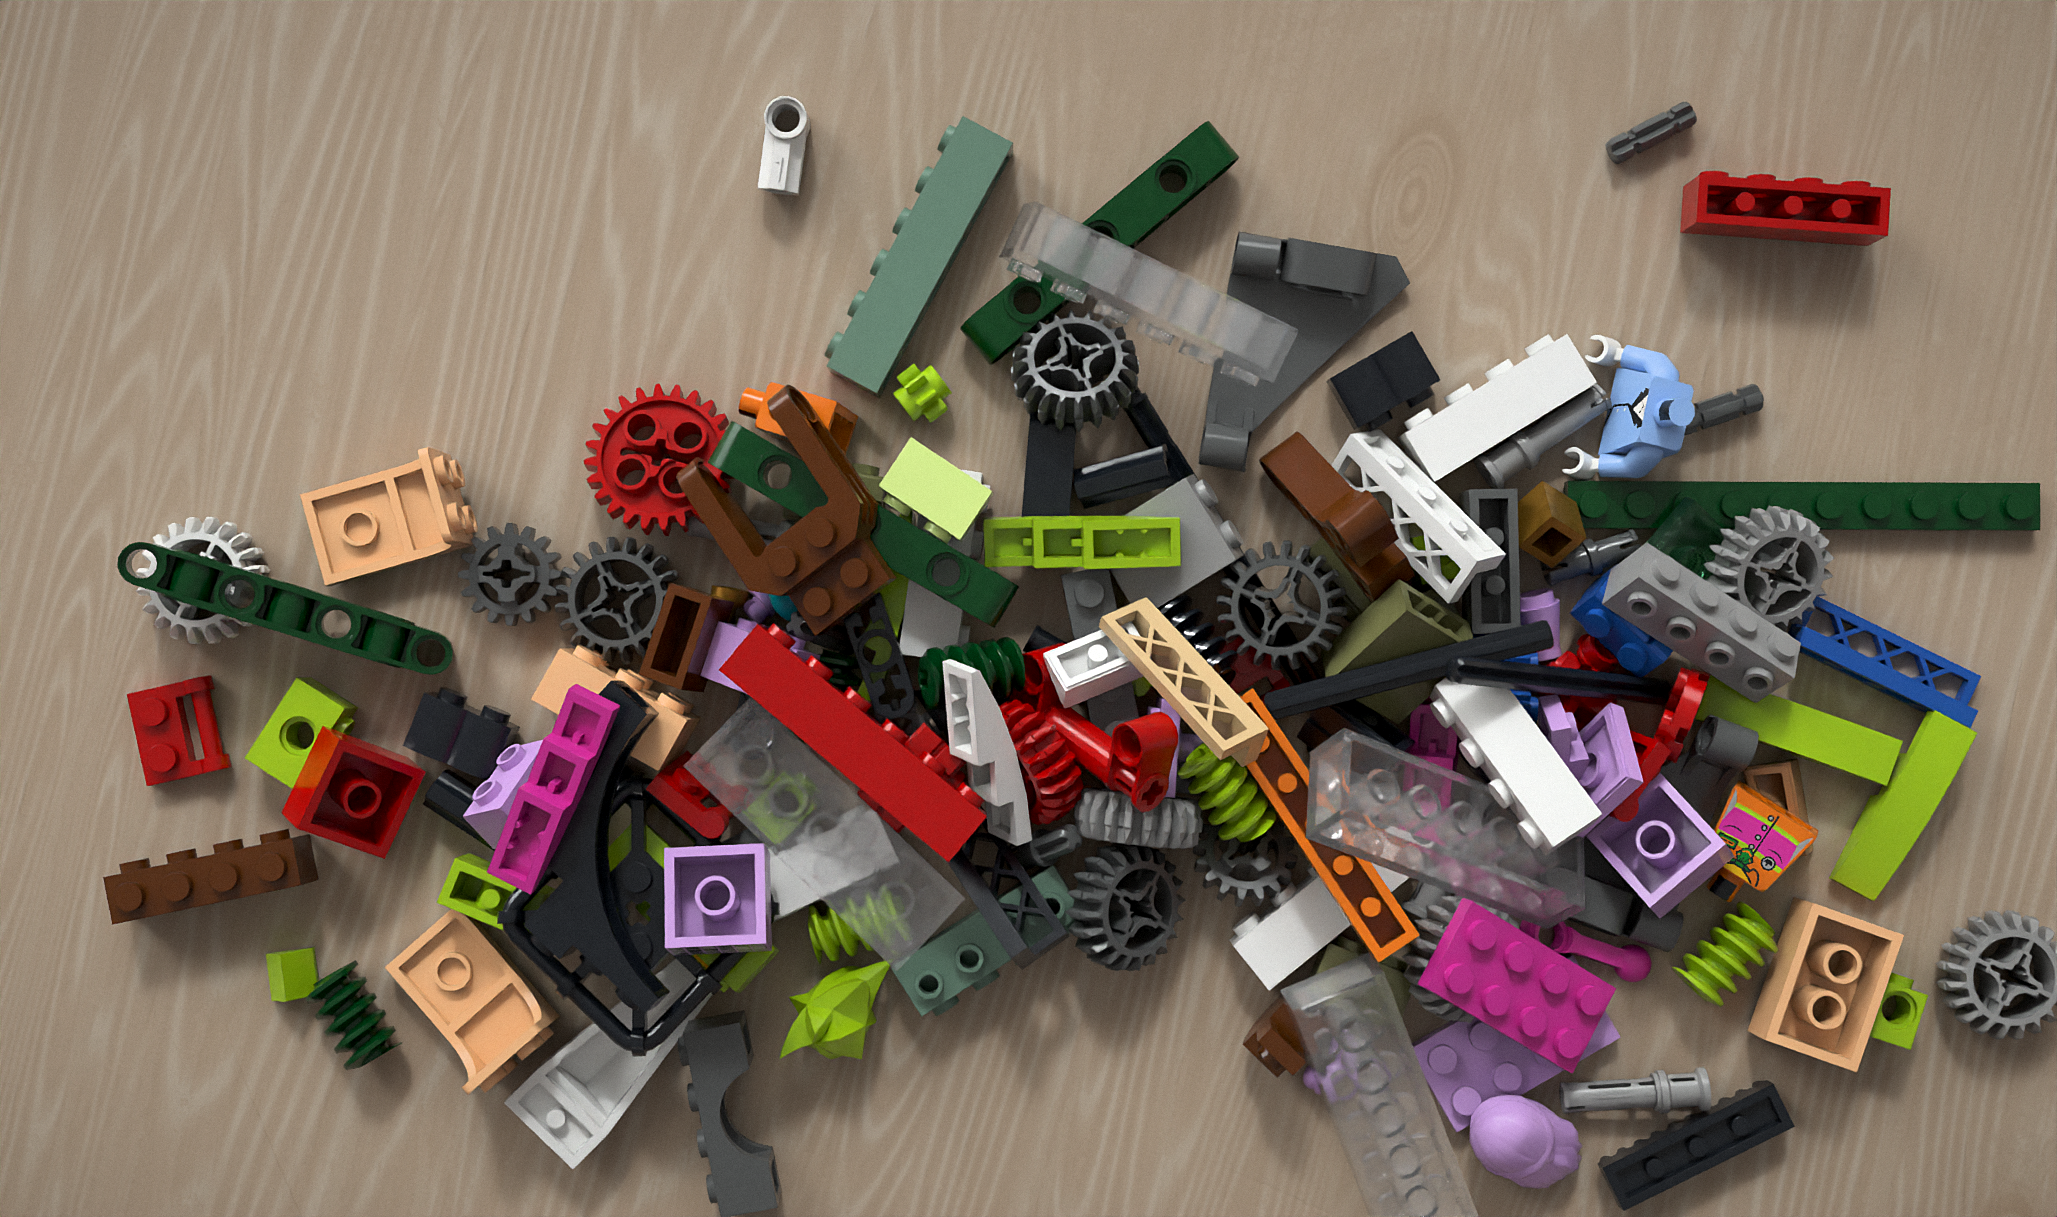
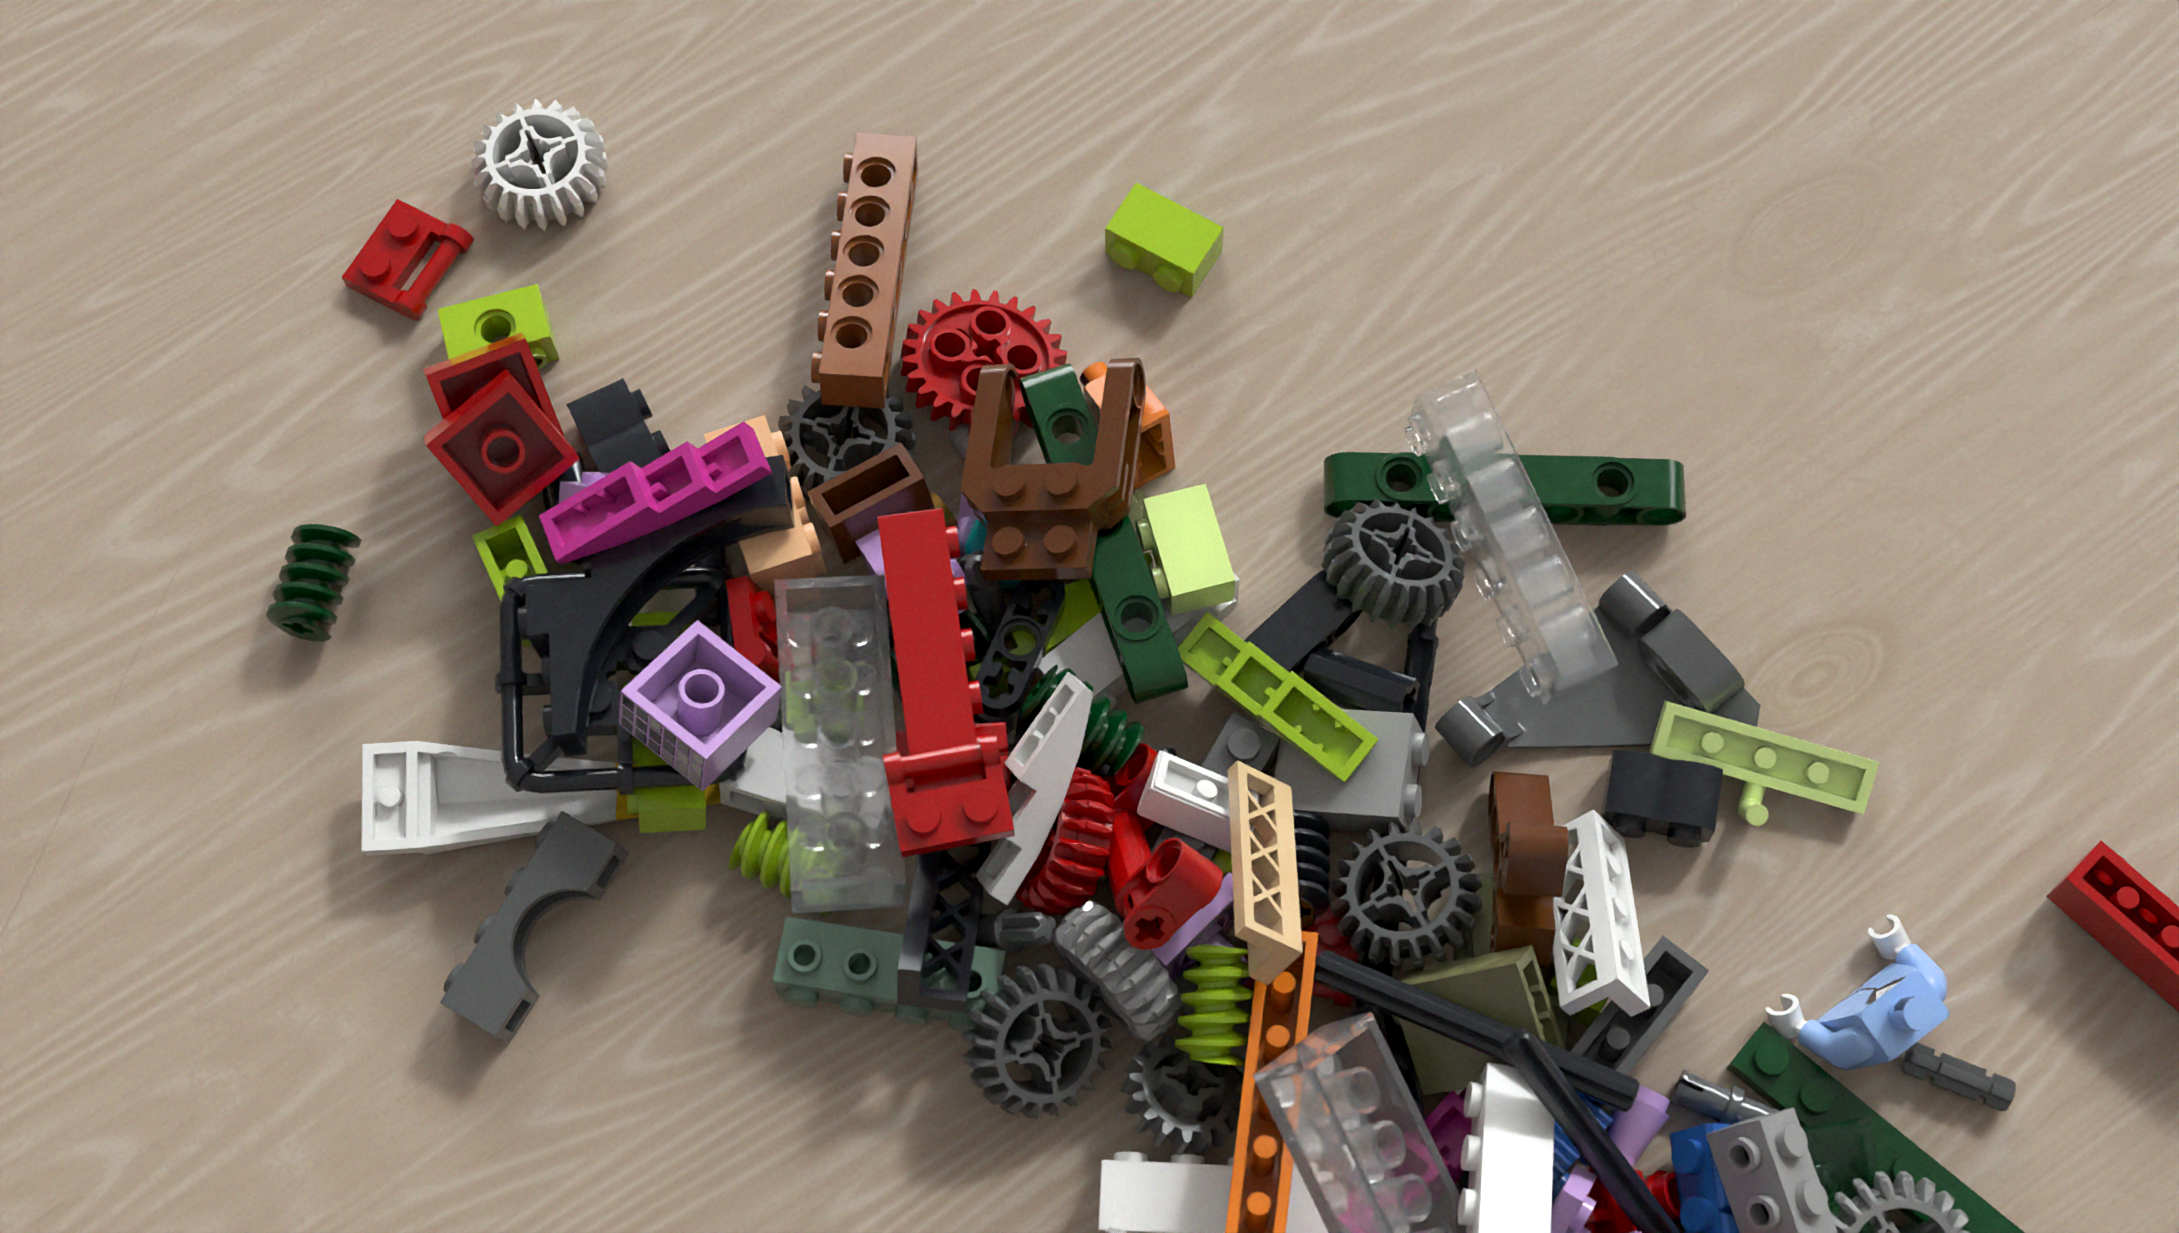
camera: 40 degrees right, 20 degrees down
(210, 879) = (318, 381): reddish brown brick -> none
(283, 607) = (584, 225): dark green beam -> none
(292, 973) = (301, 506): lime slope -> none
(390, 518) = (728, 235): light nougat bracket -> none
(398, 829) = (501, 447): none -> red brick
(460, 362) = (868, 271): none -> brick
(474, 997) = (423, 650): light nougat bracket -> none
(511, 556) = (775, 332): dark grey gear -> none
(702, 254) = (1163, 240): none -> lime brick
(783, 151) = (1301, 215): white piece -> none
(836, 1012) = (702, 919): lime hair -> none
(920, 256) = (1338, 381): sand green brick -> none
(922, 393) = (1246, 483): lime gear -> none
(957, 835) = (952, 813): none -> red plate
(1429, 298) = (1764, 760): none -> yellowish green plate
(1496, 409) = (1748, 902): white brick -> none
(1524, 448) = (1745, 959): light grey pin -> none
(1549, 524) = (1712, 1034): pearl gold brick -> none
(1651, 132) = (2085, 789): dark grey axle -> none

